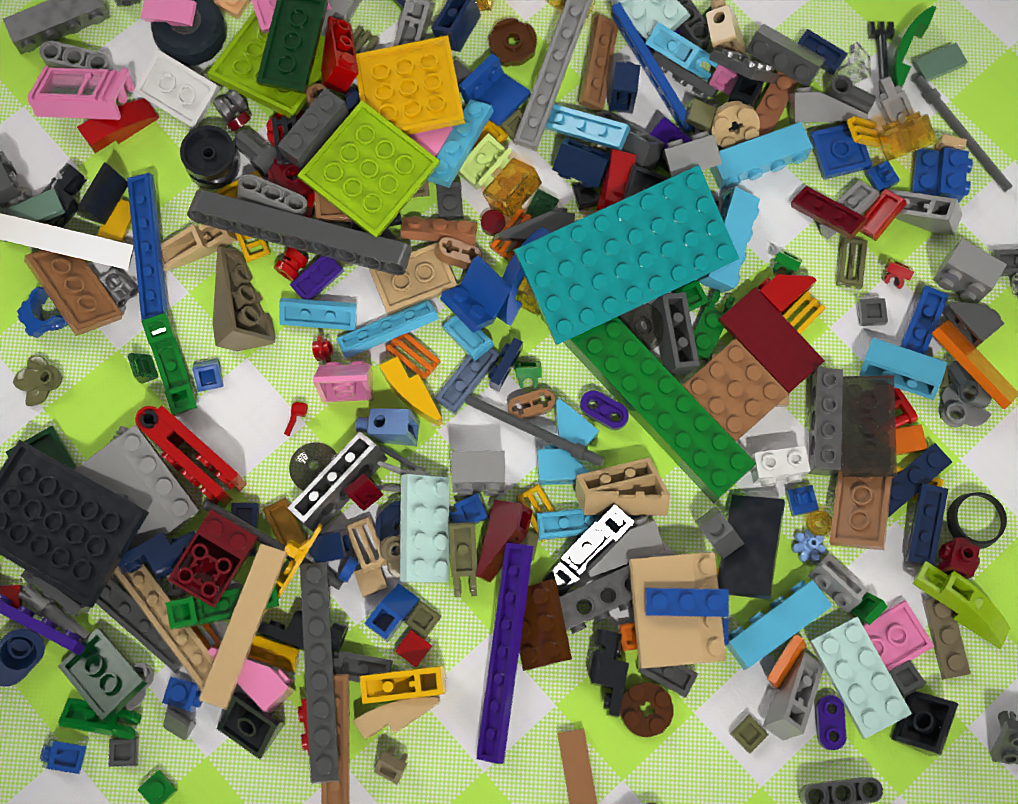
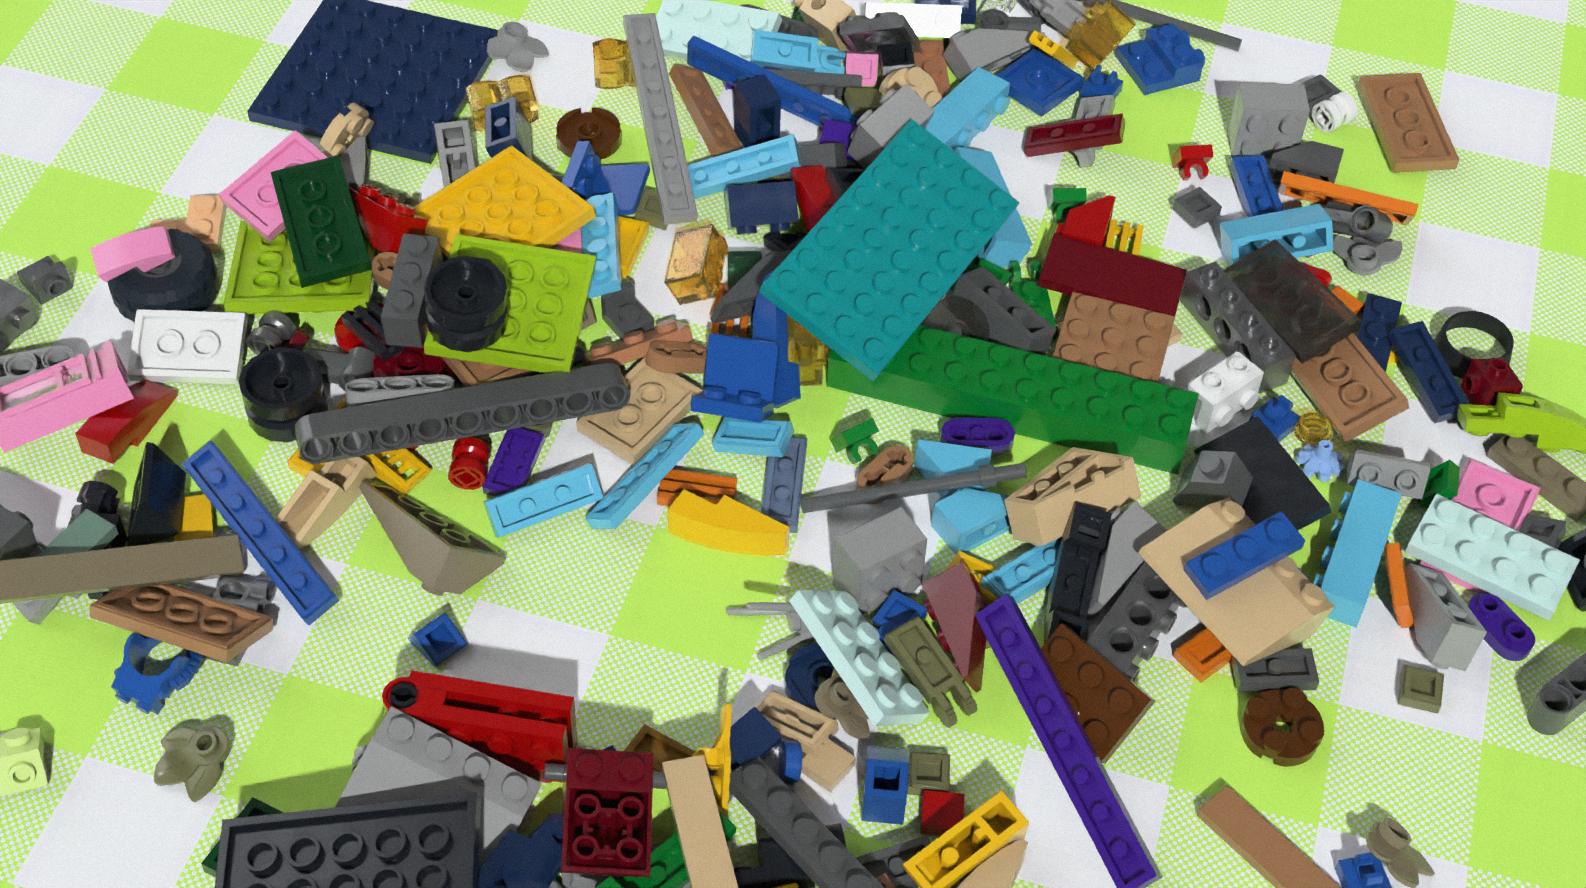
camera: 30 degrees left, 25 degrees down
(142, 367) = (338, 673): clear green slope -> none
(170, 364) = (365, 641): green slope -> none
(297, 409) = (591, 617): red hand -> none
(303, 457) = (657, 689): clear smoke dish -> none
(318, 156) = (466, 303): none -> black wheel
(322, 349) = (577, 535): red plate -> none
(326, 492) = (706, 665): flat silver brick -> none
(344, 382) = (638, 547): bright pink slope -> none
(363, 492) = (748, 657): dark red bracket -> none
(390, 426) = (730, 569): medium blue torso -> none
(484, 161) = (643, 254): yellowish green bracket -> none
(492, 222) = (696, 314): dark red tile -> none
(509, 355) = (822, 454): dark blue plate -> none
(608, 671) = (1207, 703): black plate -> none
(849, 282) = (1130, 179): olive tile -> none
(882, 214) = (1135, 108): red tile -> none
(930, 212) = (1172, 95): light grey slope -> none
(950, 142) = (1148, 22): tan tile -> none

